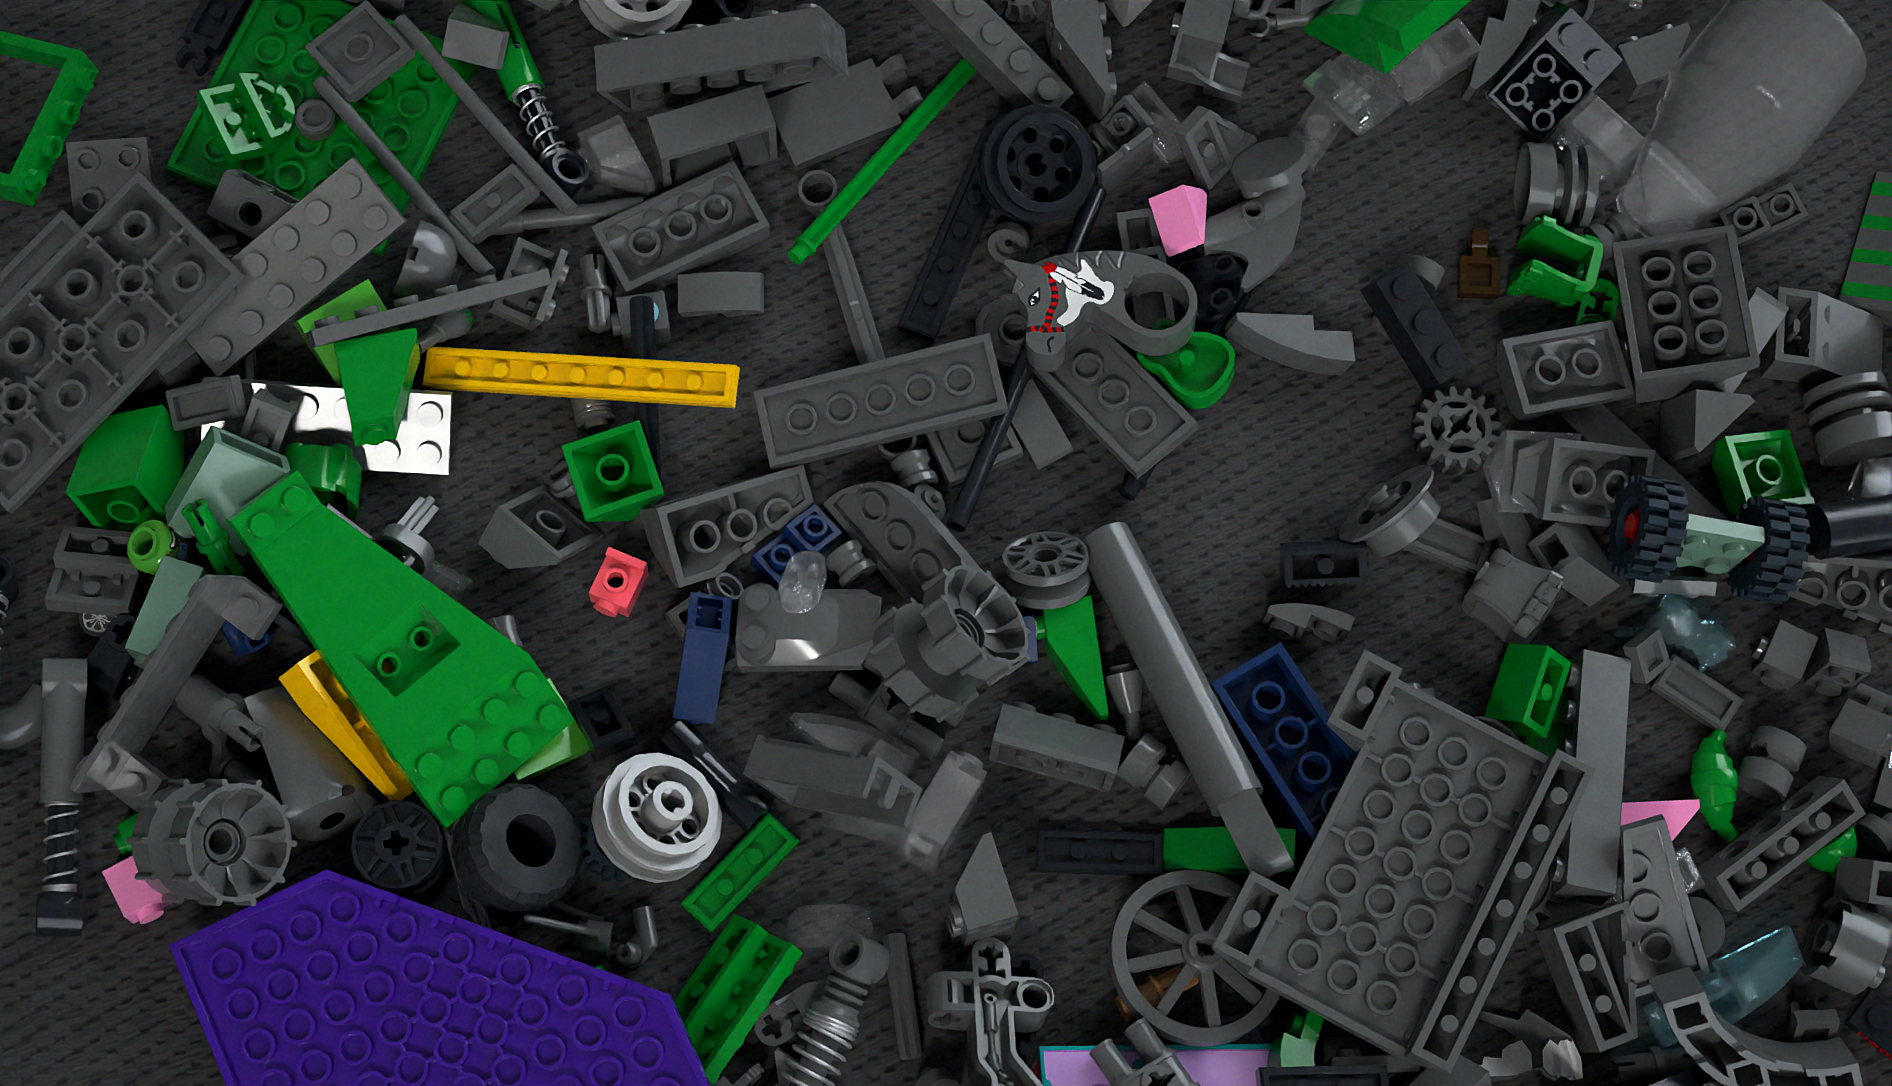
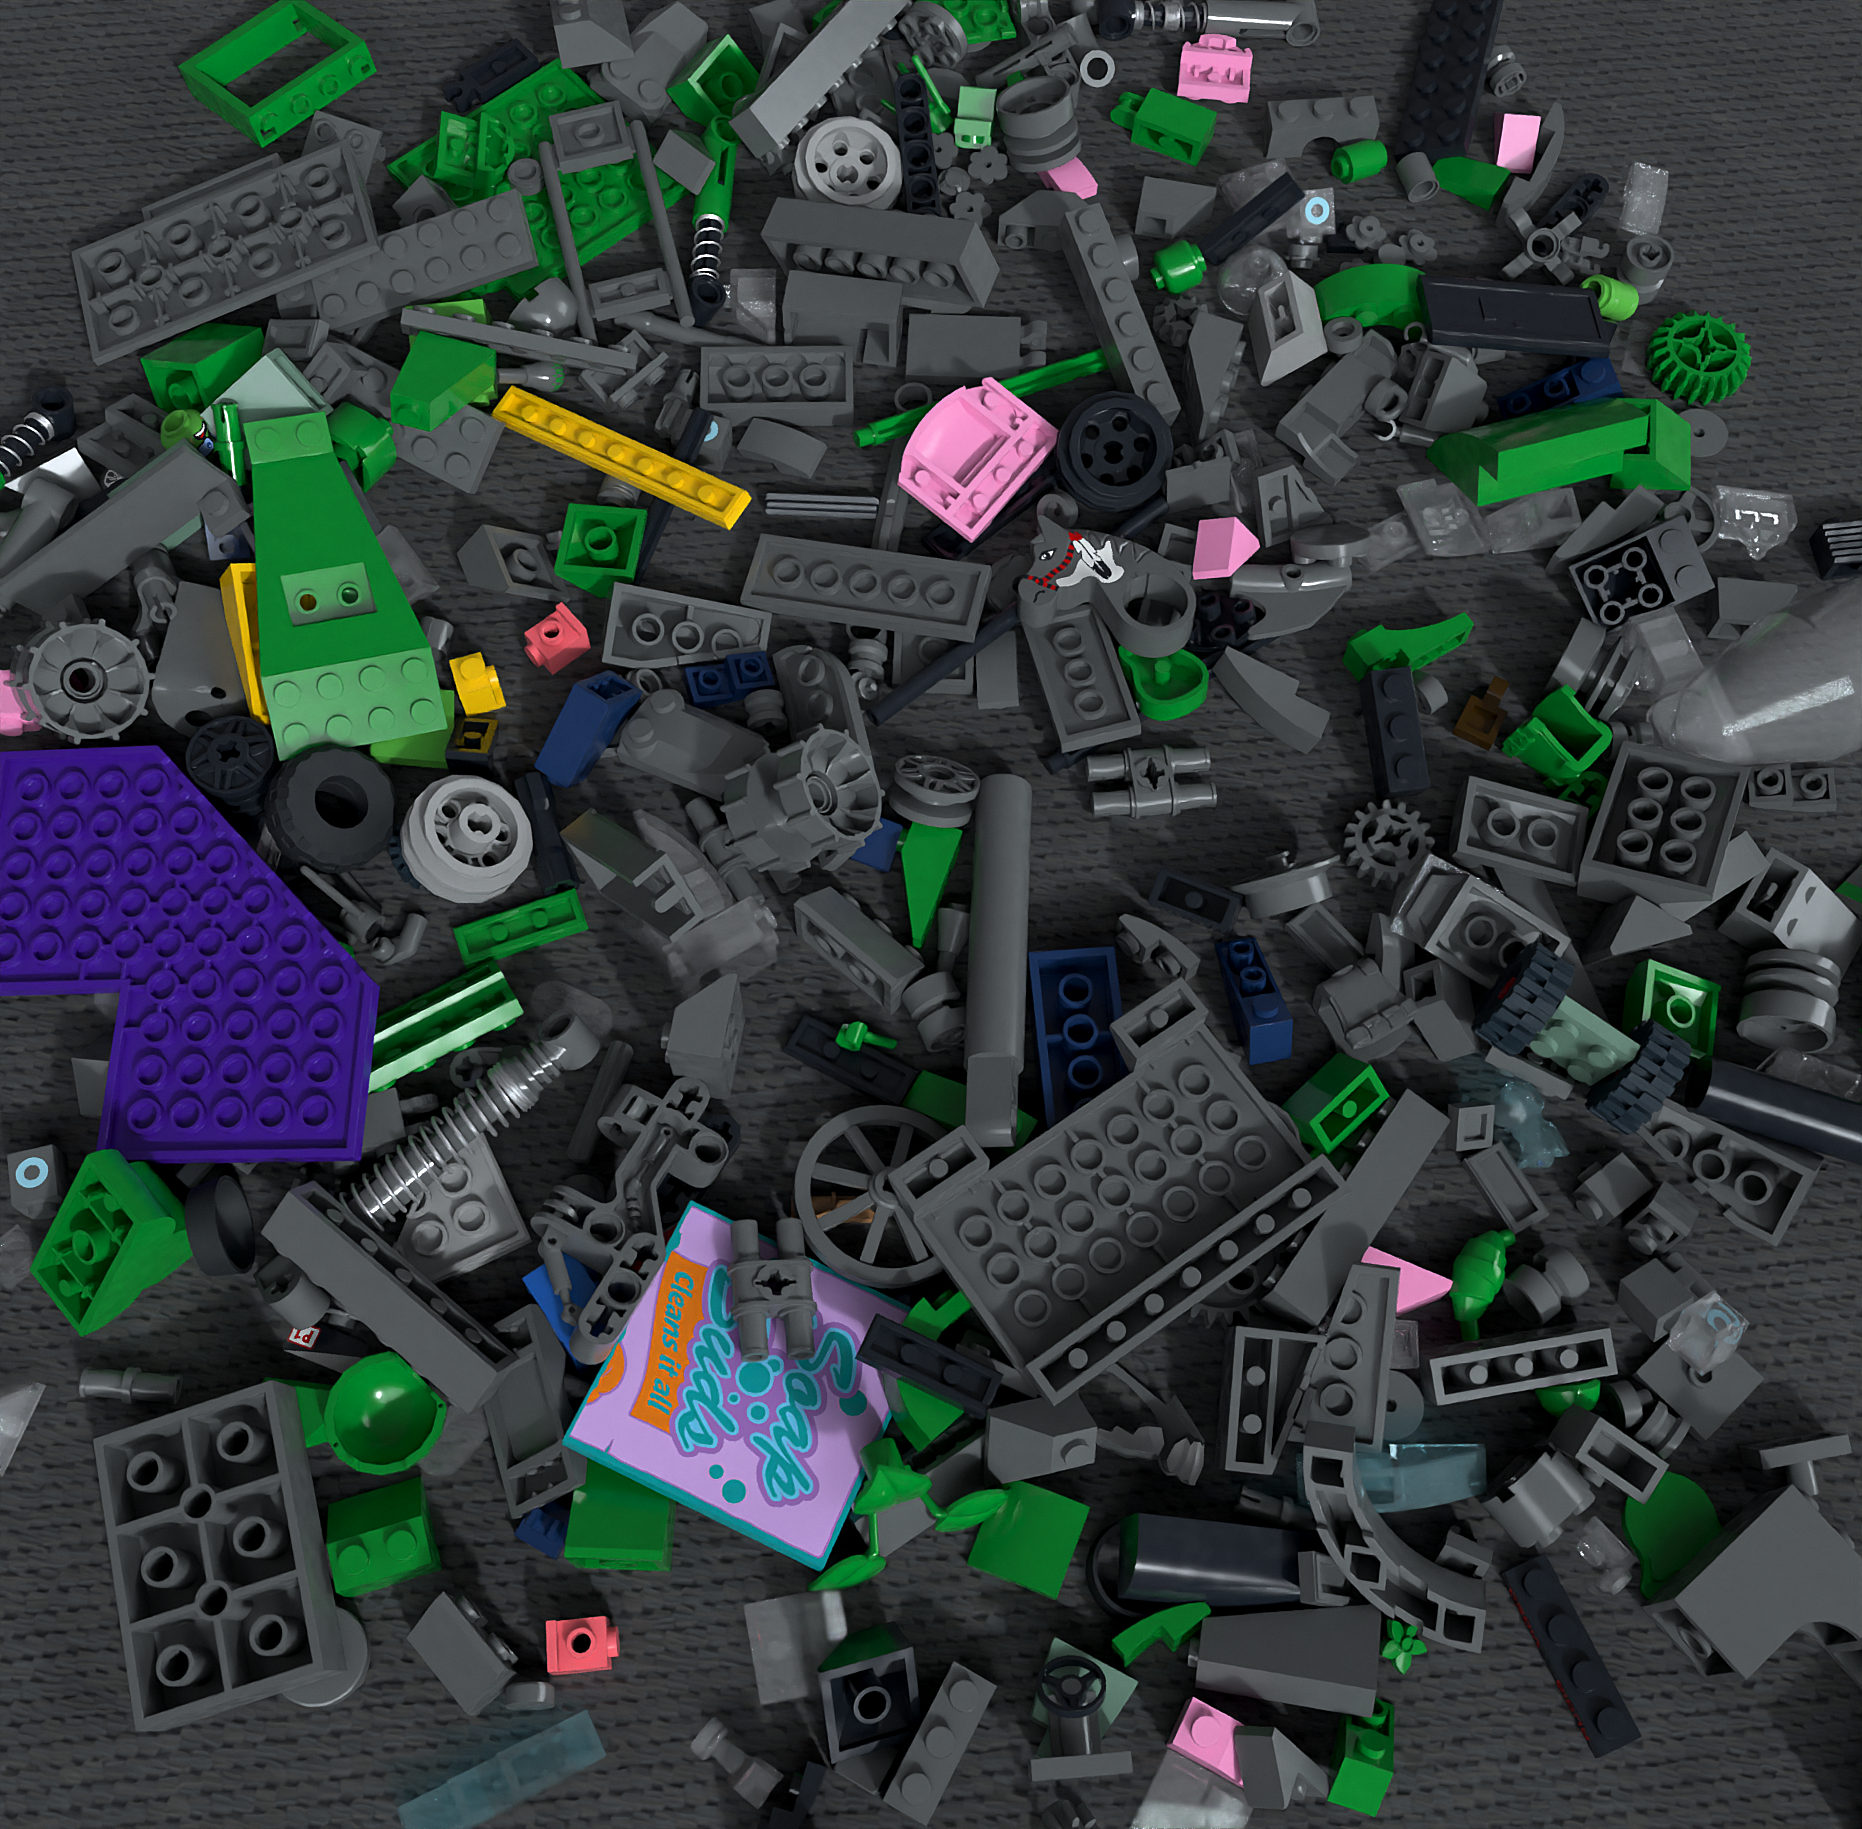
camera: 30 degrees right, 5 degrees down
(38, 635) = (63, 468): none -> dark grey slope
(404, 538) = (393, 522): dark grey piece -> none
(570, 662) = (477, 684): none -> yellow brick
(786, 333) = (821, 505): none -> black axle
(802, 582) = (710, 703): clear beam -> none
(911, 225) = (974, 455): none -> bright pink slope
(1093, 829) = (854, 1034): none -> green hand
(1224, 487) = (1140, 797): none -> dark grey pin
(1380, 239) = (1404, 648): none -> green slope
(1415, 629) = (1255, 1002): none -> dark blue slope

